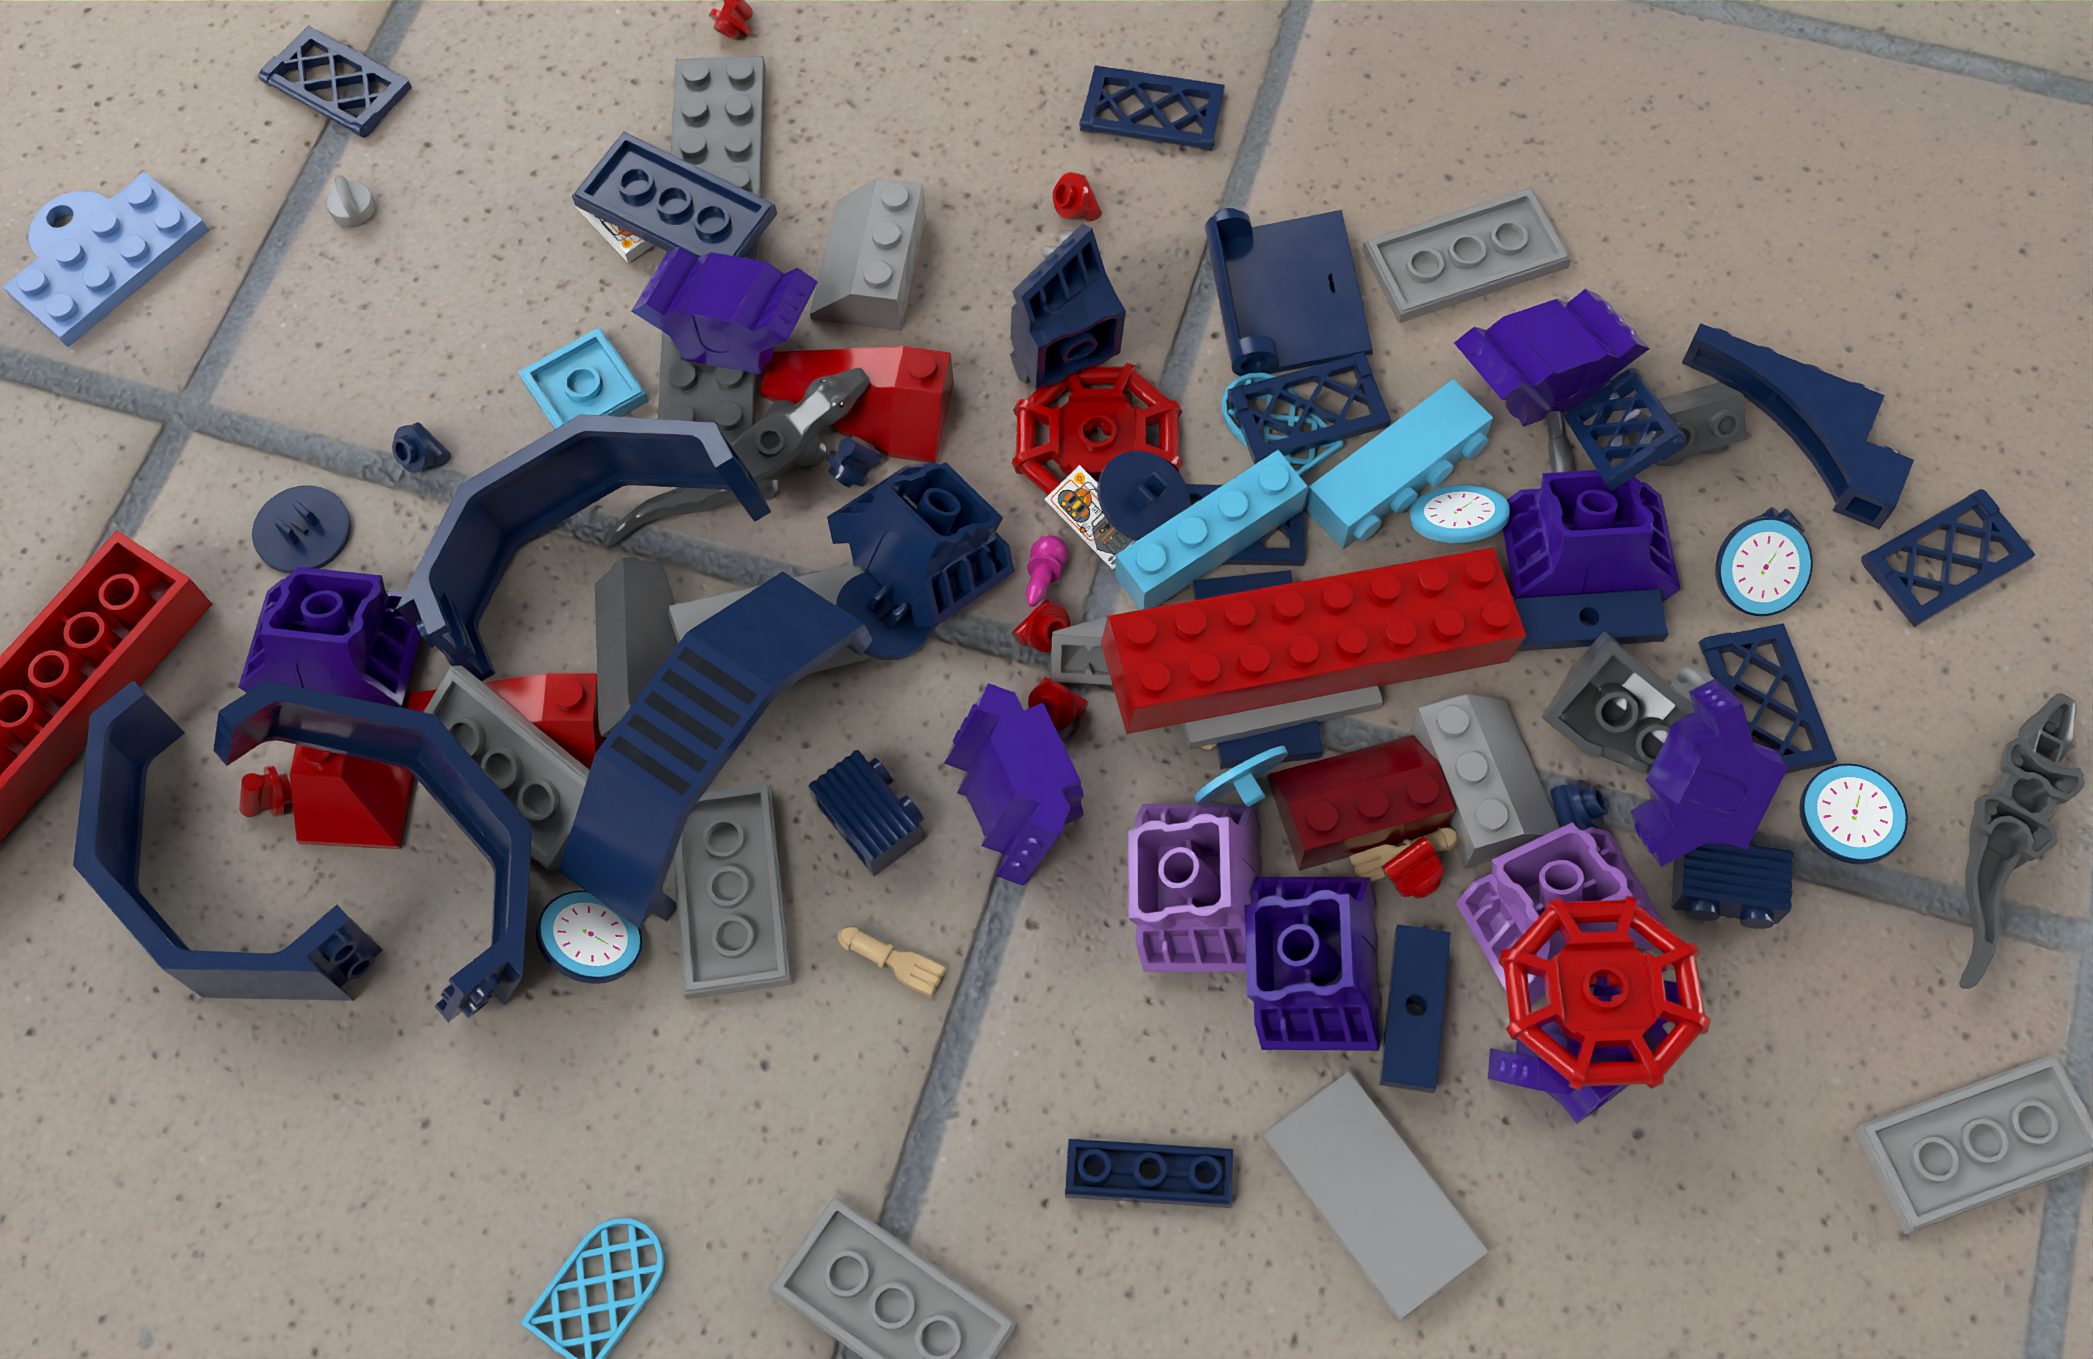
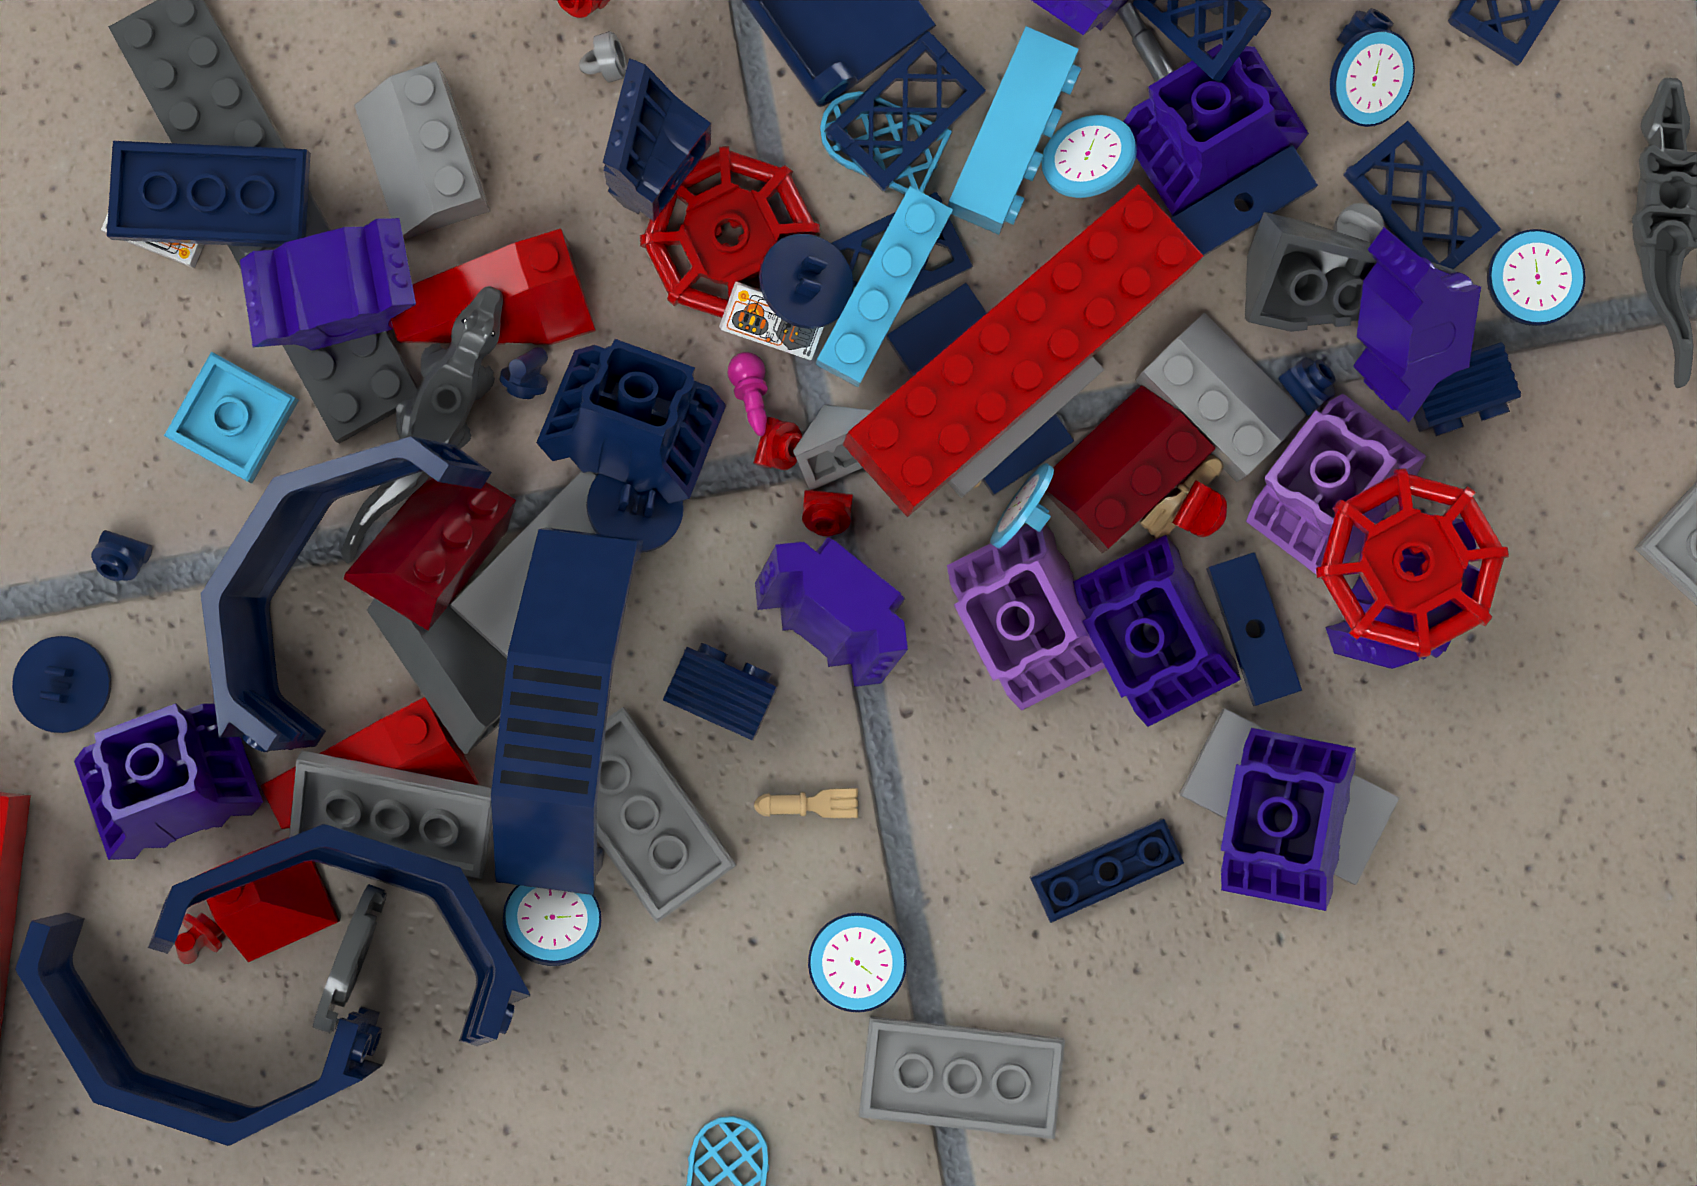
camera: 30 degrees left, 20 degrees up
(383, 861) = (349, 958): none -> dark grey tile
(685, 556) = (432, 548): none -> dark red slope
(852, 1129) = (857, 962): none -> piece
(1357, 1206) = (1286, 818): none -> dark purple slope

